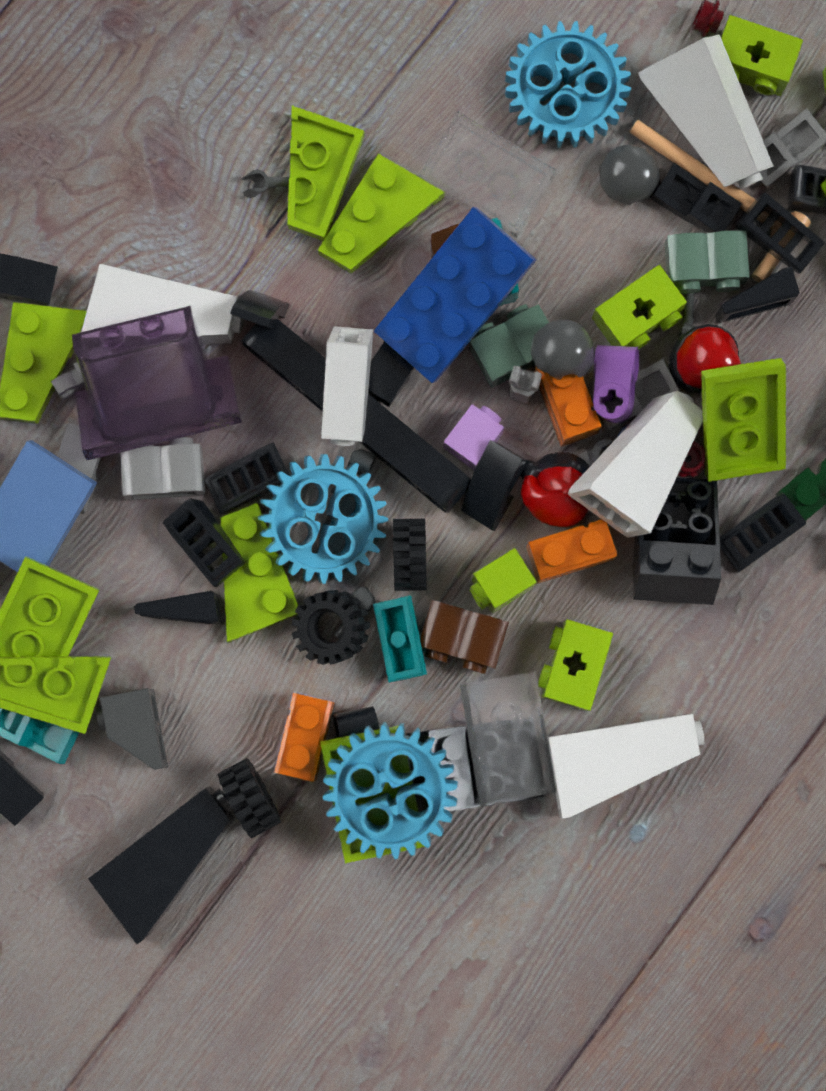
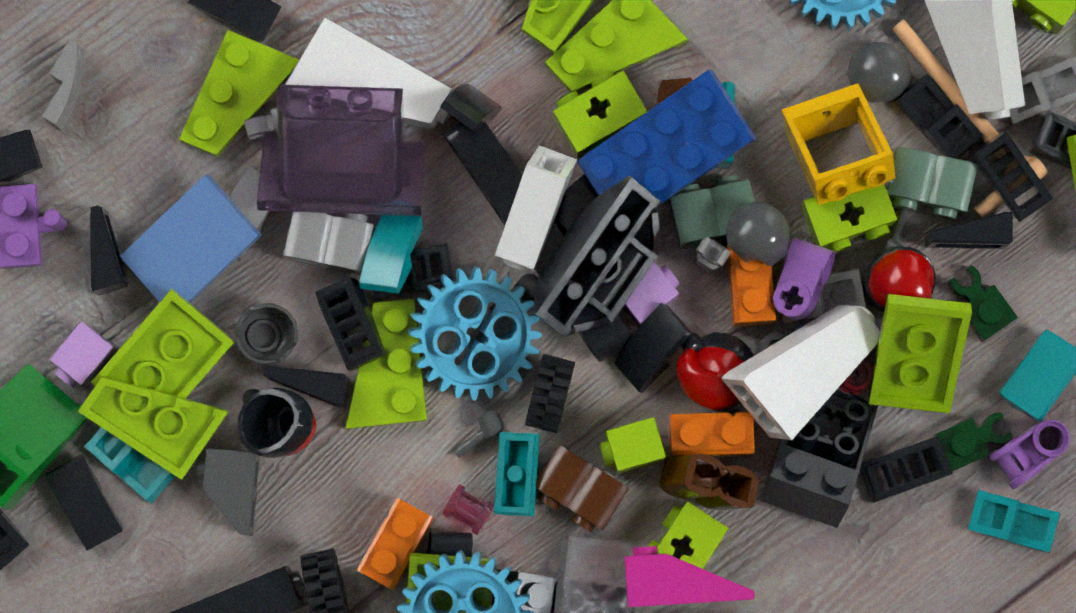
camera: 15 degrees right, 0 degrees up
(127, 574) = (266, 333): none -> dark grey hair
(159, 655) = (275, 422): none -> black piece
(222, 466) = (389, 253): none -> teal slope
(309, 634) = (429, 436): black tyre -> none
(363, 685) = (468, 509): none -> clear pink bush
(372, 302) = (587, 132): none -> lime brick
(421, 414) = (600, 259): none -> black wedge
(573, 698) = (667, 580): none -> dark pink slope
(582, 595) = (709, 482): none -> reddish brown brick
(608, 215) = (843, 109): none -> yellow window
(799, 362) = (988, 307): none -> dark green plate

